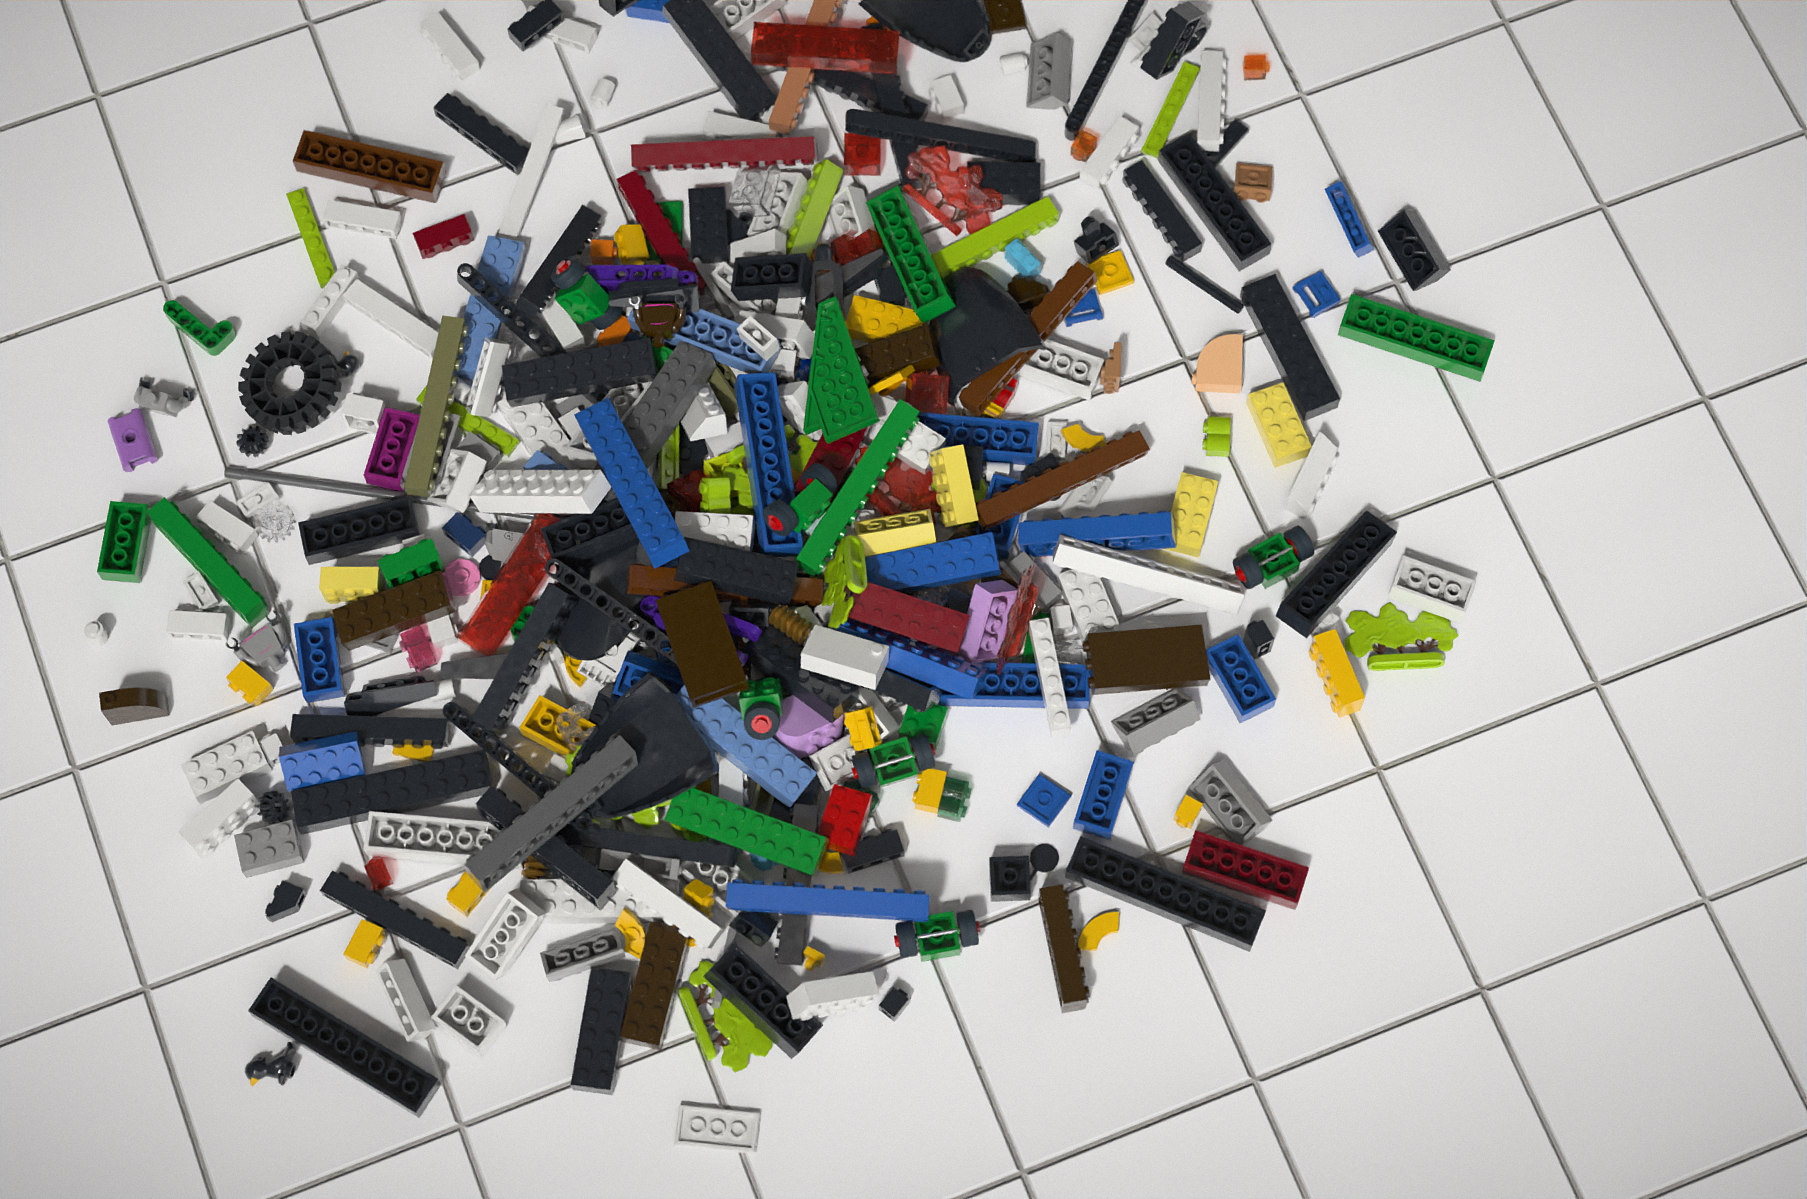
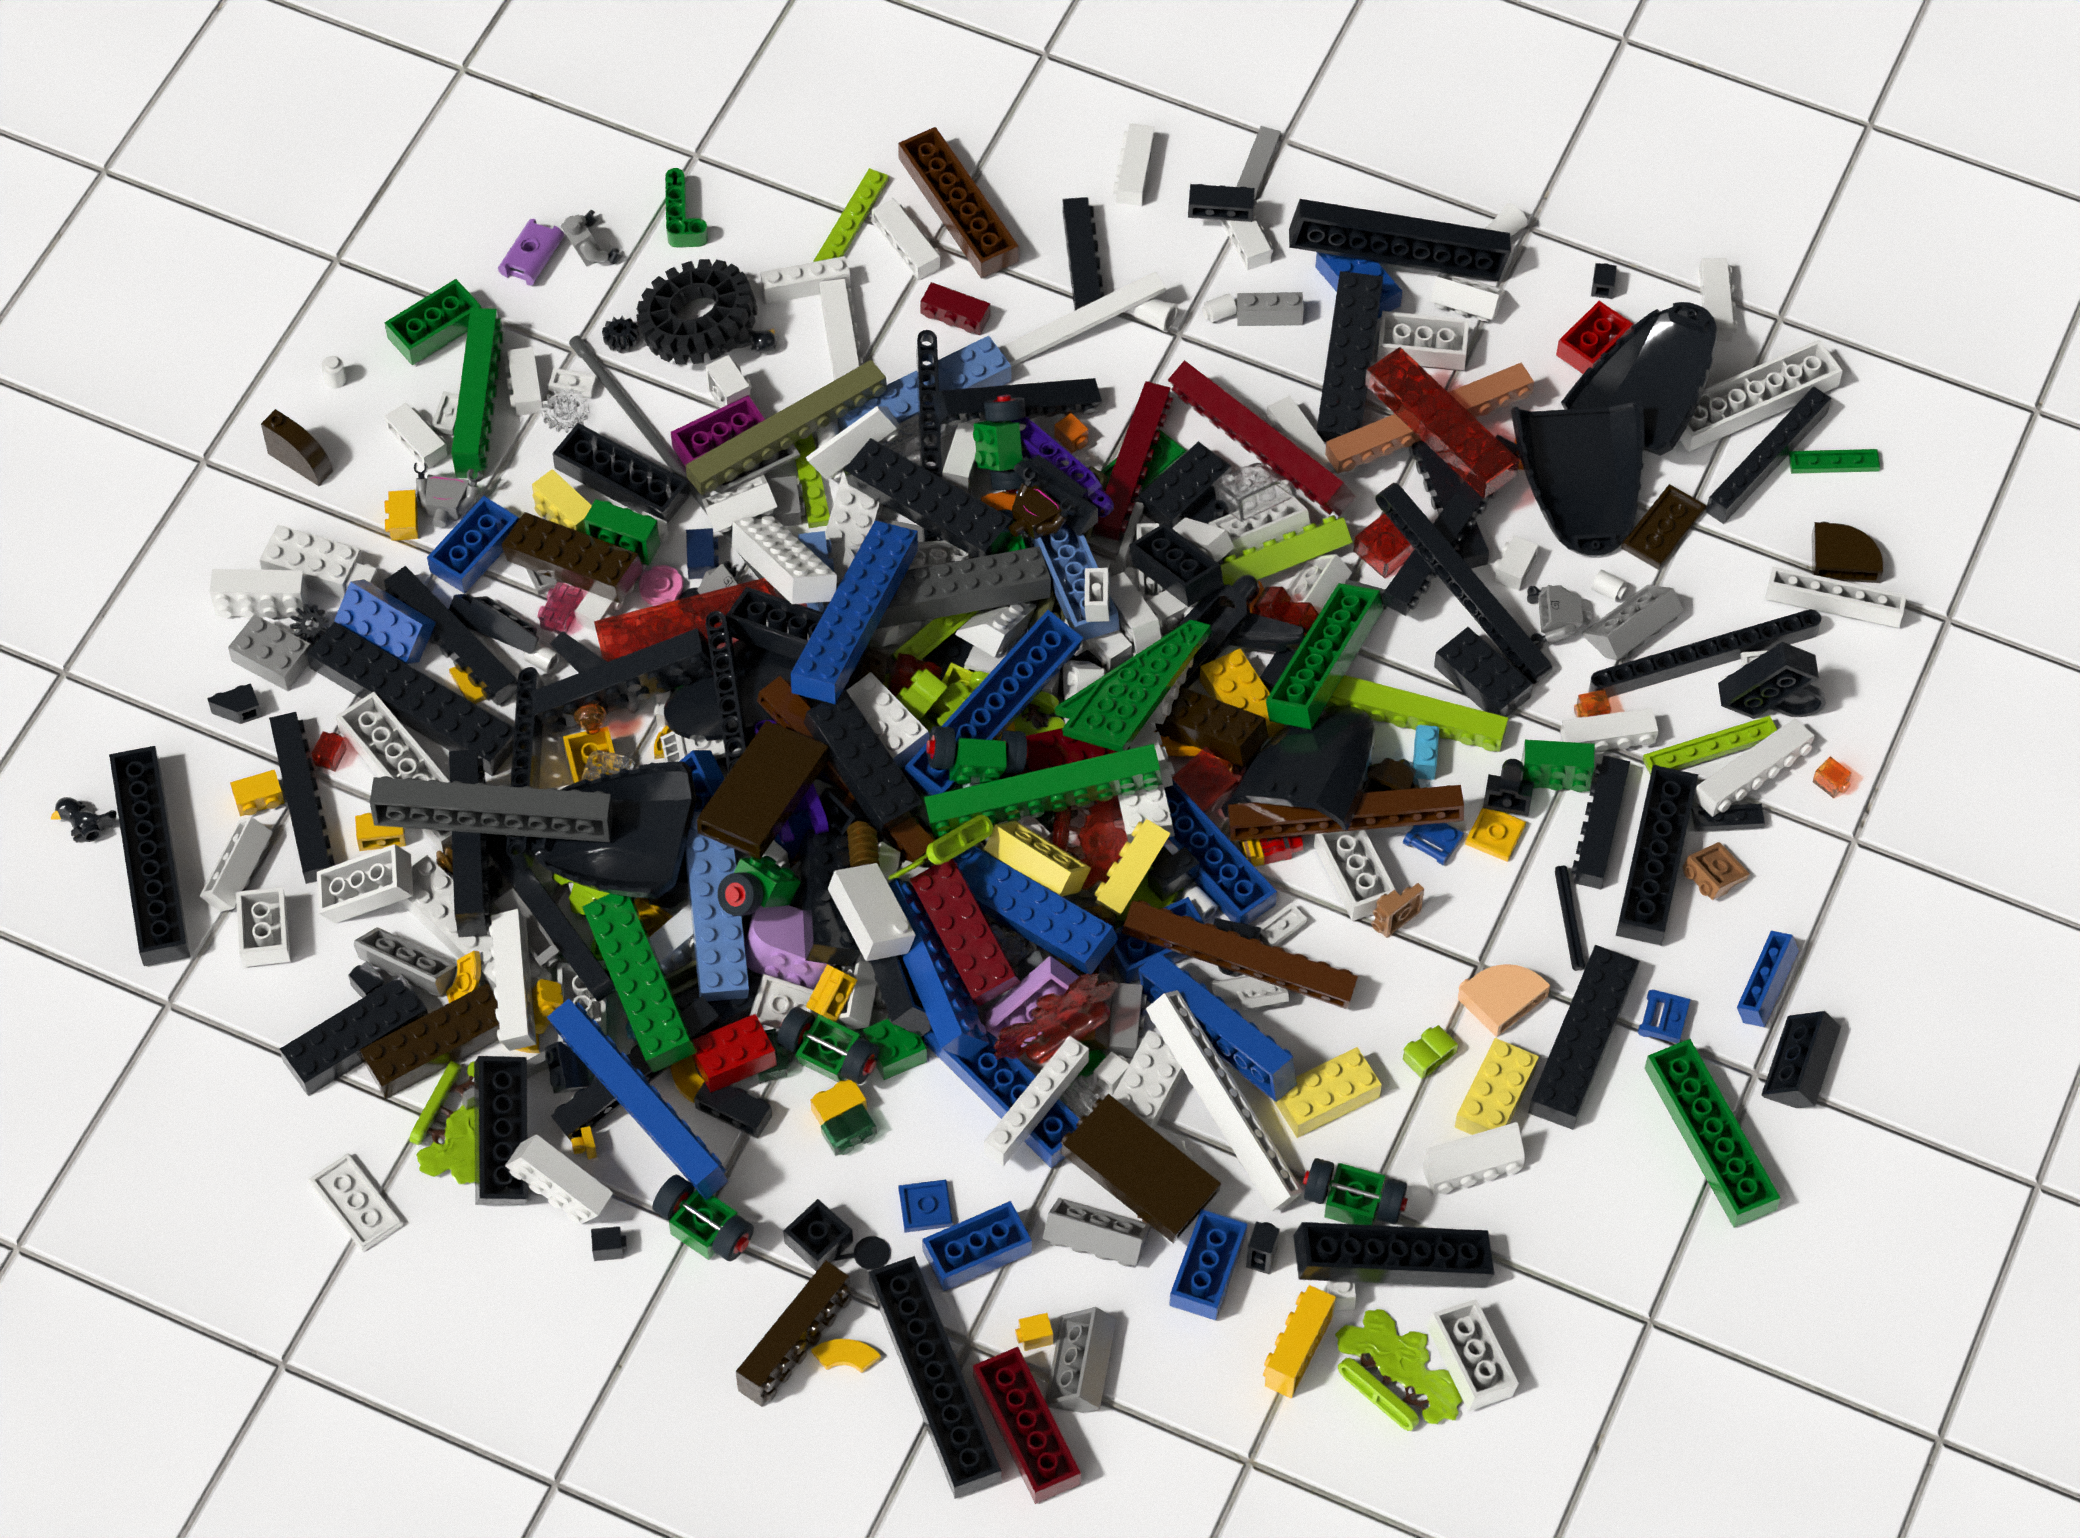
camera: 45 degrees right, 10 degrees down
(526, 700) = (590, 718): none -> clear orange brick
(570, 992) = (365, 979): none -> black brick
(631, 244) = (1100, 446): yellow brick -> none
(634, 66) = (1270, 309): none -> light grey brick
(891, 379) = (1181, 735): yellow tile -> none
(957, 187) = (1430, 638): clear red plant -> none
(1004, 105) = (1558, 611): none -> light grey torso
(1082, 440) = (1302, 940): yellow tile -> none
(1107, 197) = (1558, 764): none -> green brick

